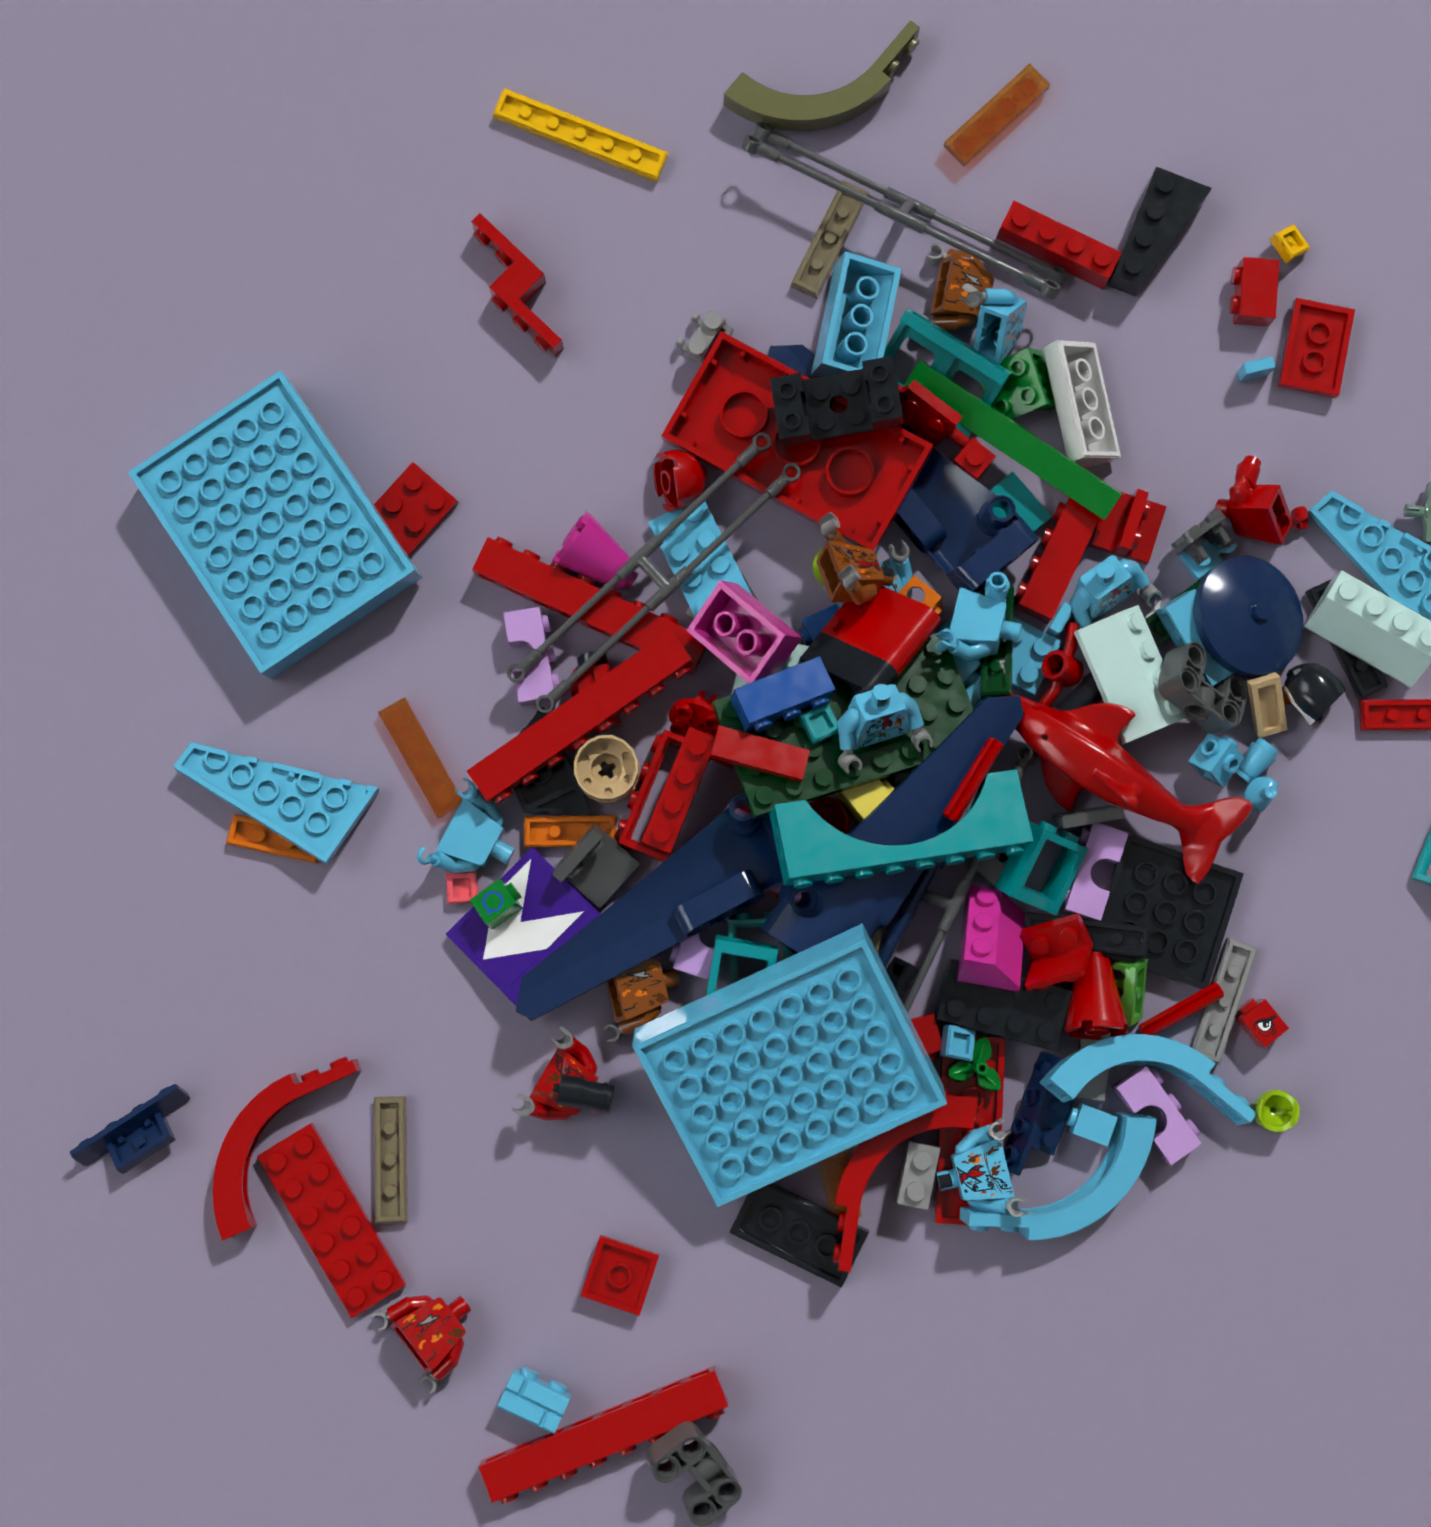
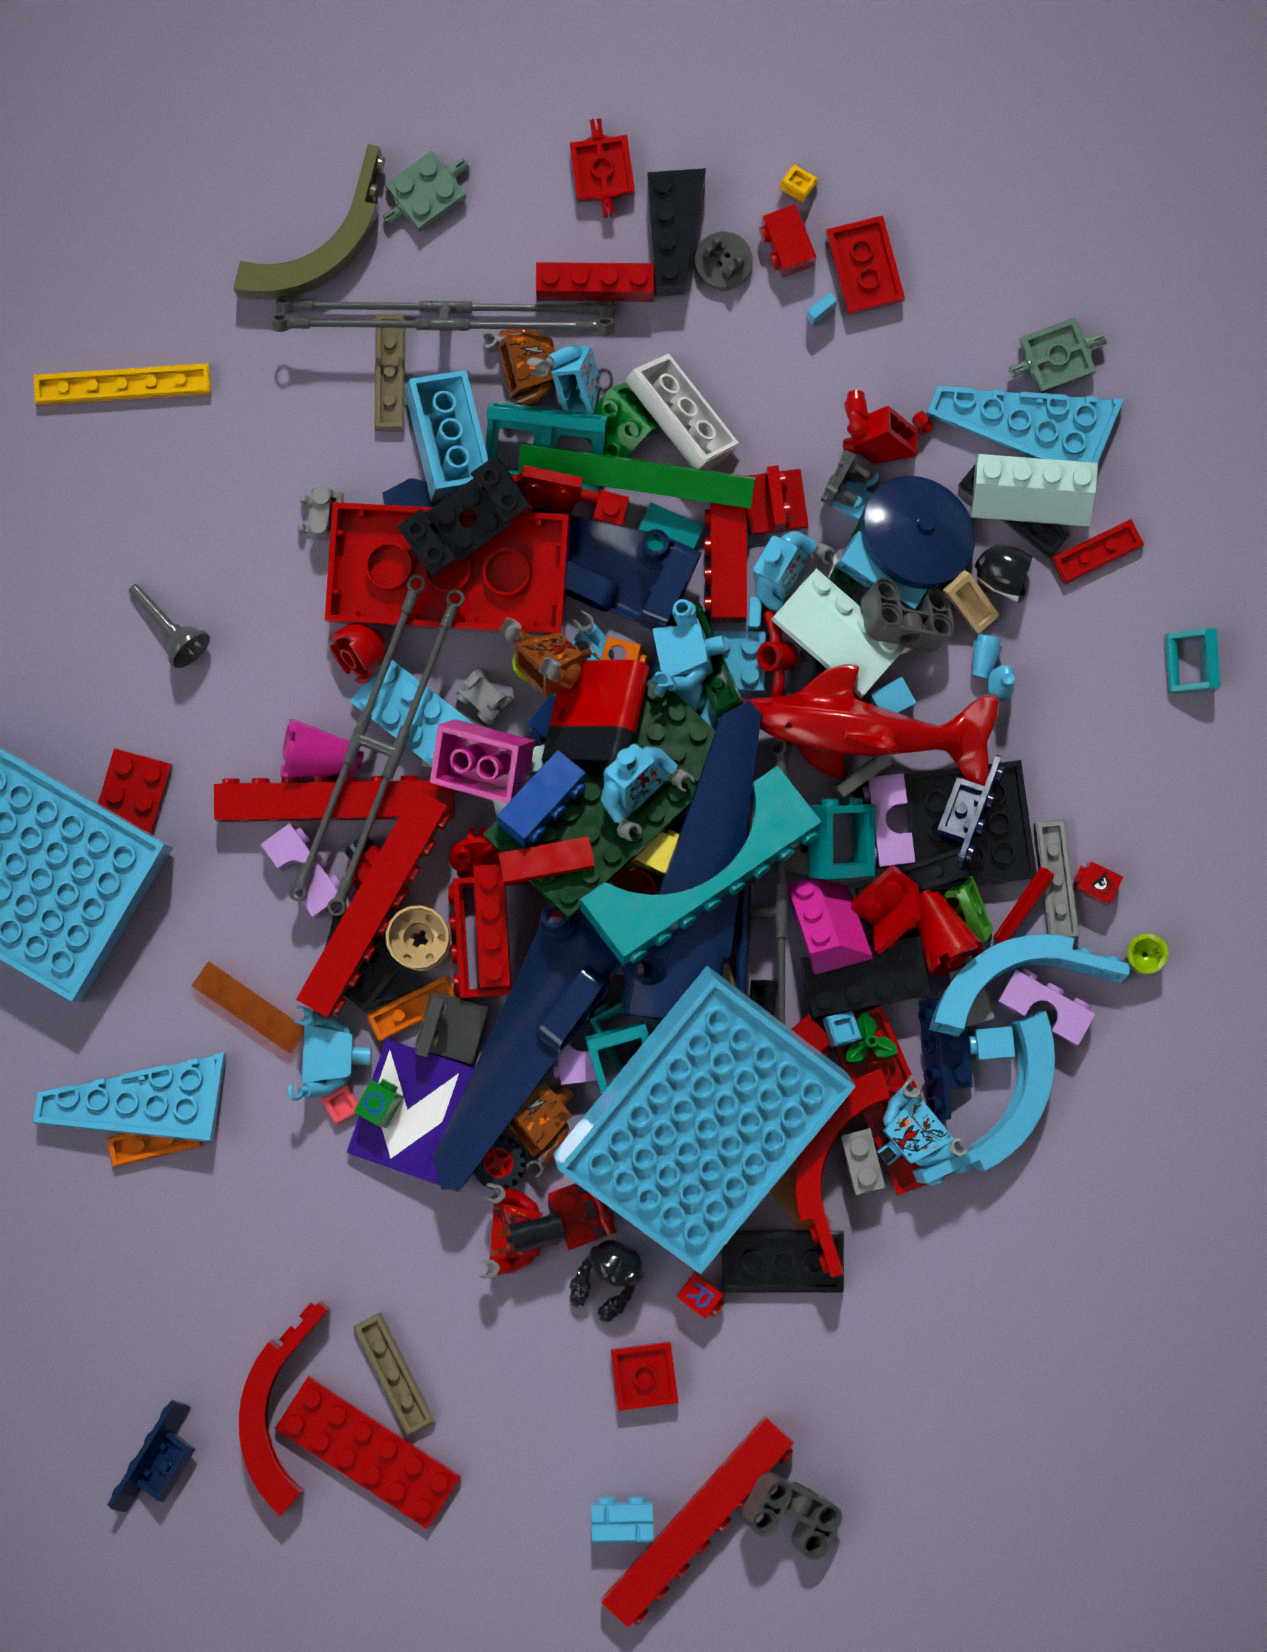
camera: 20 degrees left, 0 degrees up
(429, 1332) = (501, 1507): red torso -> none
(516, 285) = (130, 547): red bracket -> none
(523, 396) = (183, 643): none -> dark grey piece
(594, 1013) = (512, 1160): none -> black wheel
(626, 1097) = (575, 1218): none -> red plate
(642, 1161) = (613, 1265): none -> black hair
(707, 1227) = (701, 1296): none -> red brick
(773, 575) = (483, 696): none -> light grey piece
(819, 724) = (586, 809): teal tile -> none
(942, 90) = (425, 191): none -> sand green plate
(973, 779) = (743, 793): red axle -> none
(996, 115) = (484, 191): clear orange plate -> none
(1114, 144) = (602, 168): none -> red plate
(1153, 757) = (893, 697): none -> medium azure brick
(1170, 894) = (964, 811): none -> bracket
(1192, 294) = (733, 269): none -> dark grey plate
(1216, 758) = (949, 670): medium azure brick -> none

